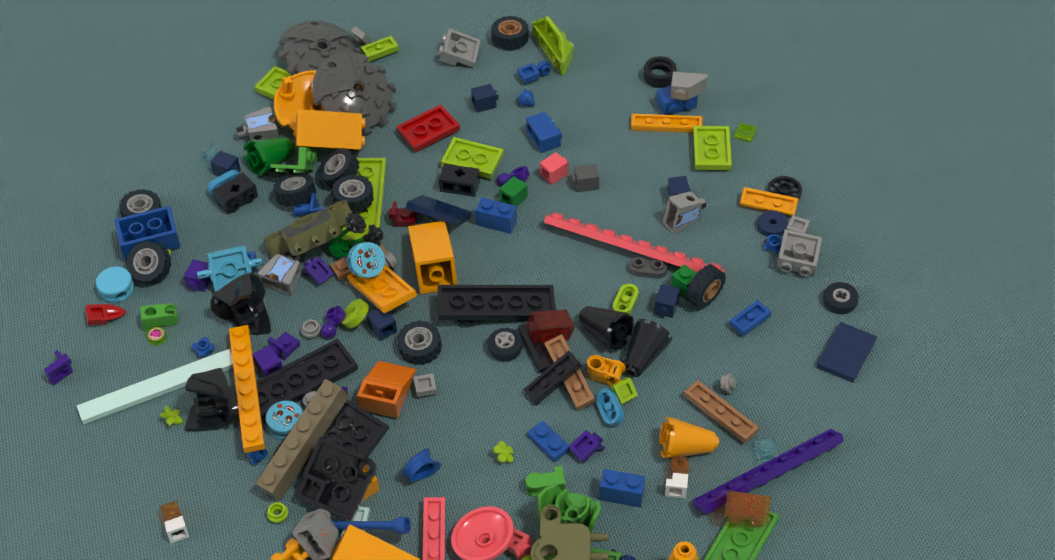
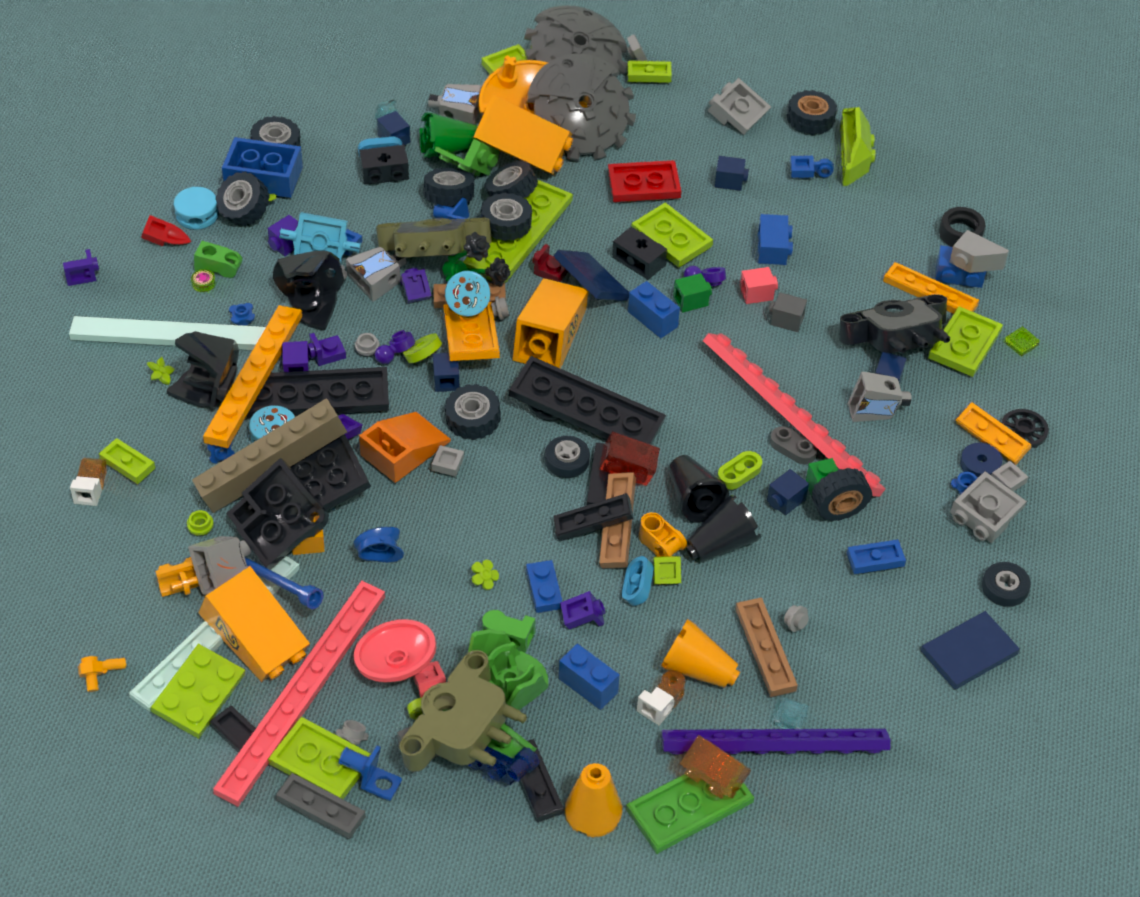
camera: 25 degrees right, 0 degrees up
(192, 493) = (127, 461): none -> lime plate
(526, 98) = (780, 193): blue plate -> none
(666, 162) = (889, 332): none -> black piece

